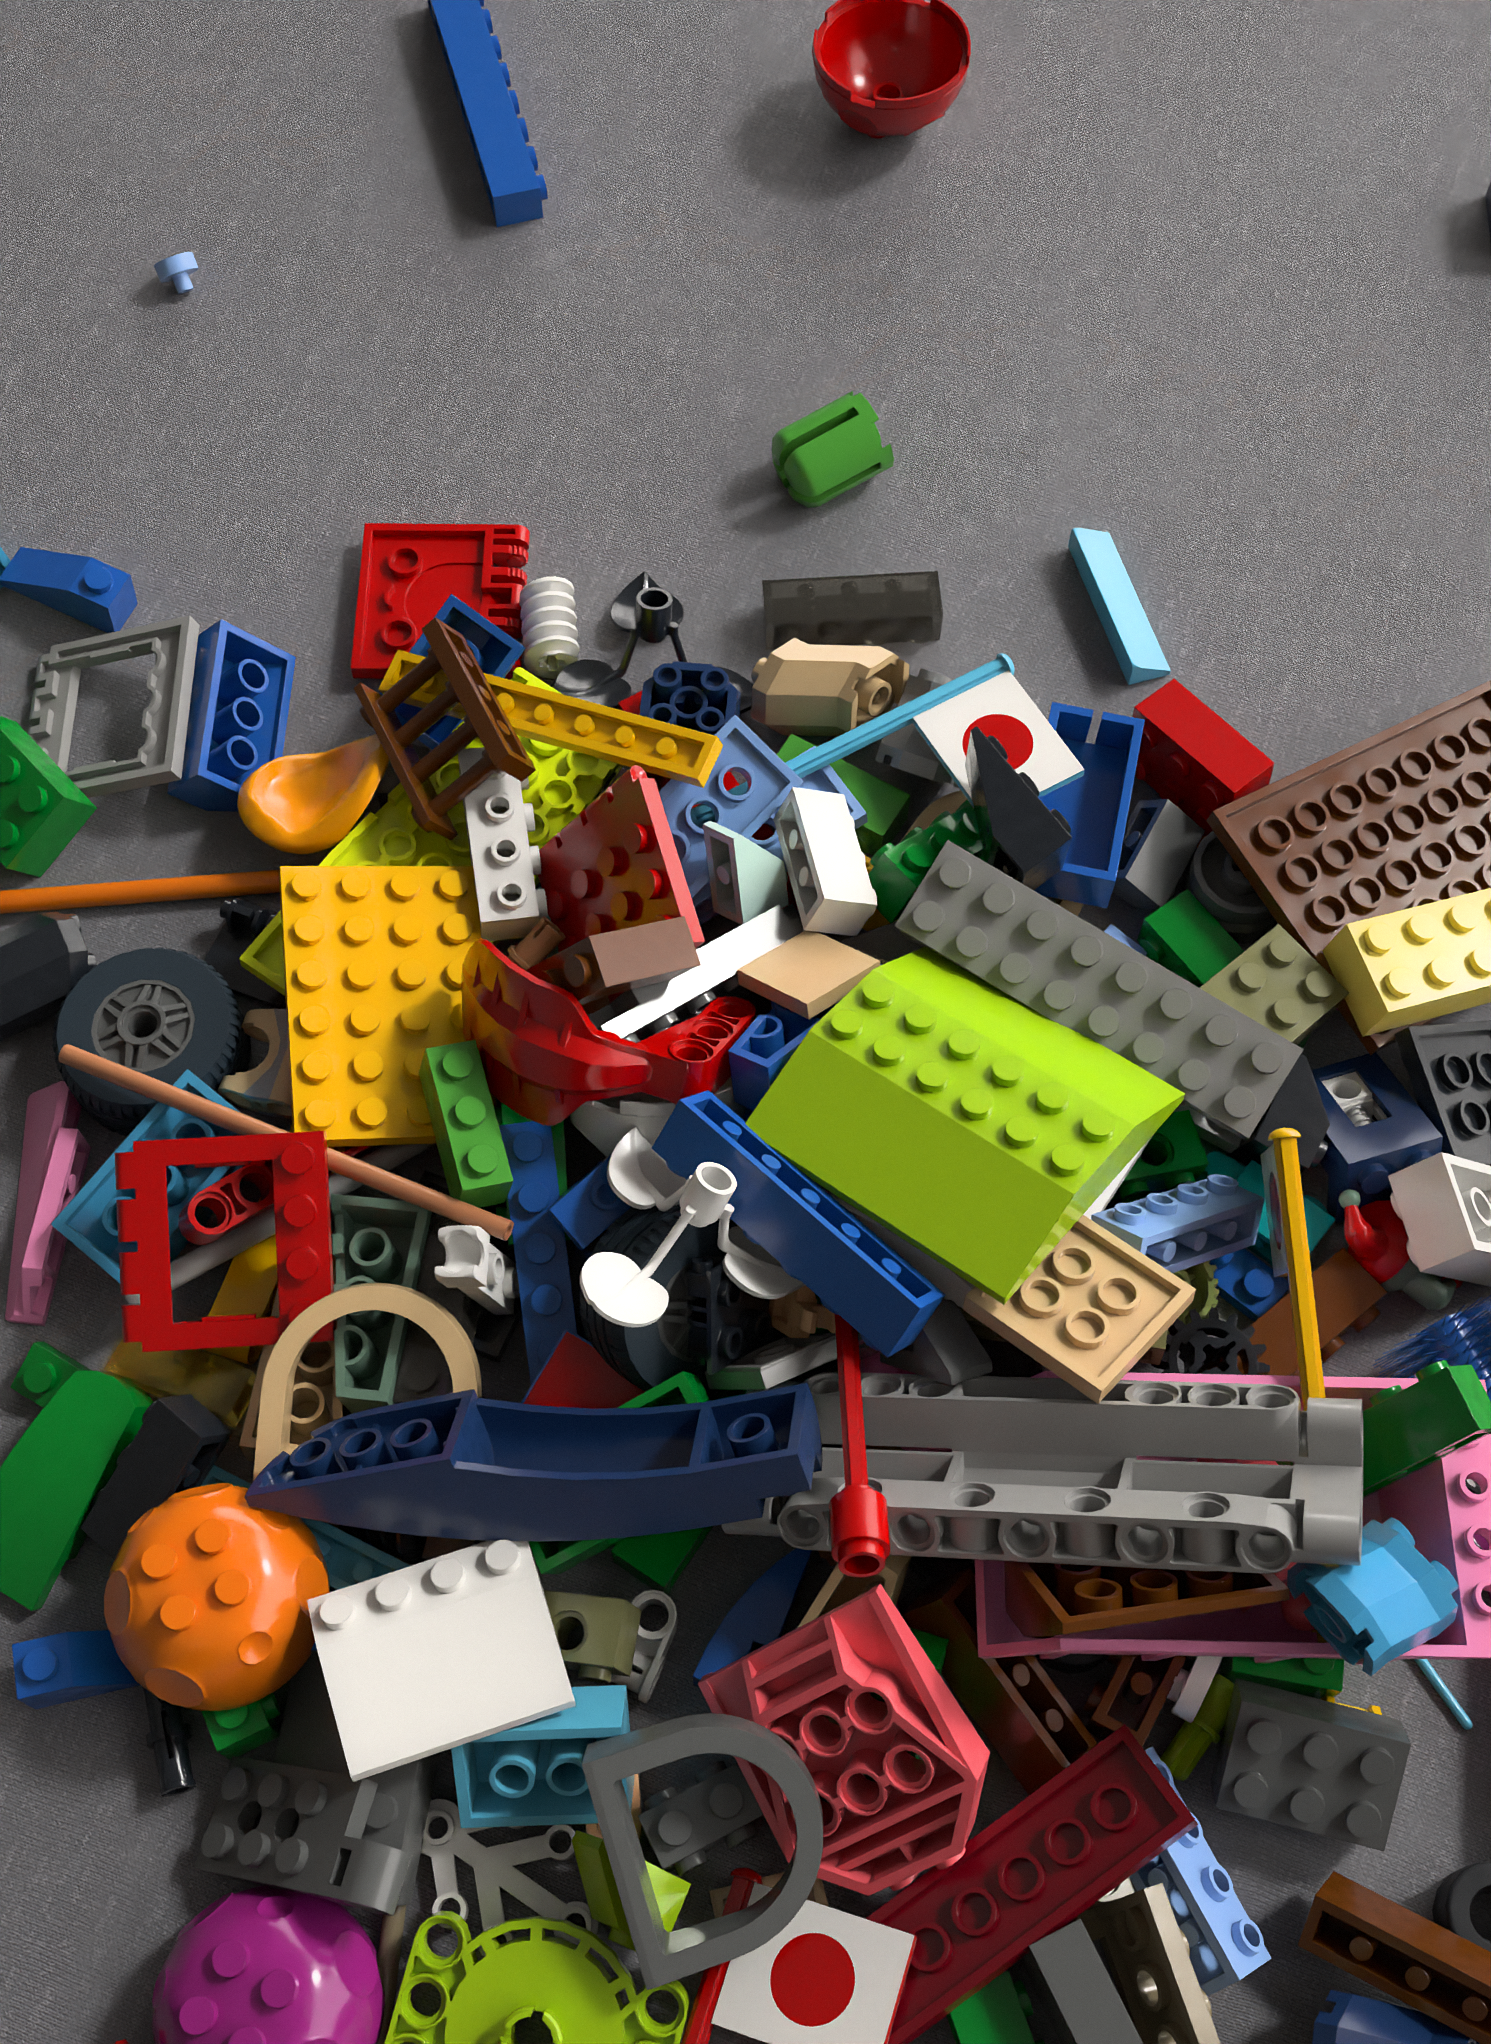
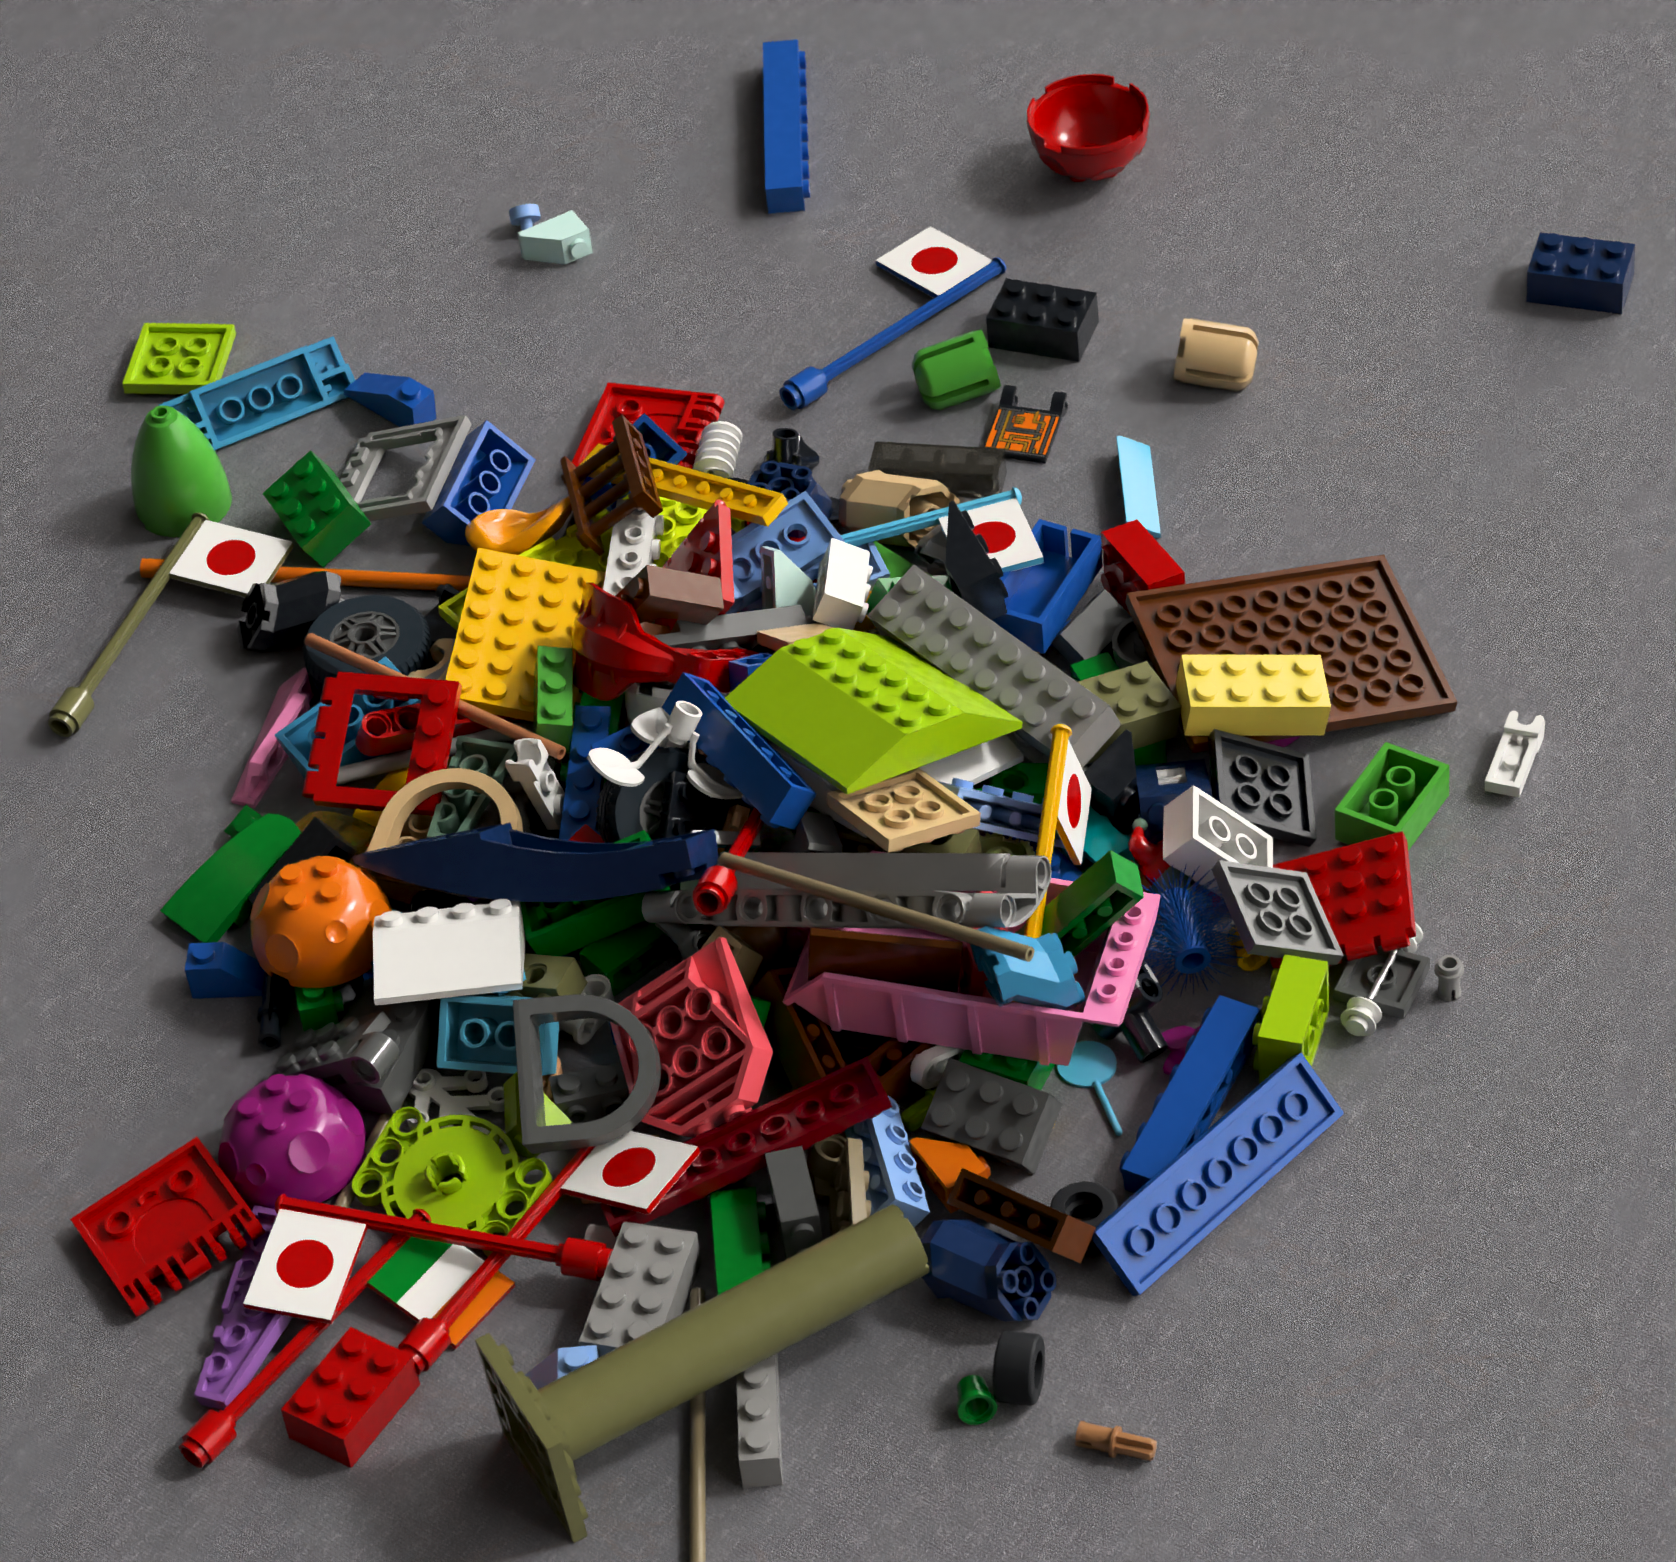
camera: 20 degrees right, 20 degrees down
(231, 302) = (556, 240): none -> light aqua slope
(749, 290) = (927, 262): none -> flag
(914, 355) = (1042, 320): none -> black brick
(938, 529) = (1025, 431): none -> flag
(1151, 1554) = (877, 907): none -> dark tan piece
(1156, 386) = (1216, 354): none -> tan cylinder
(1272, 1864) = (941, 1164): none -> orange slope

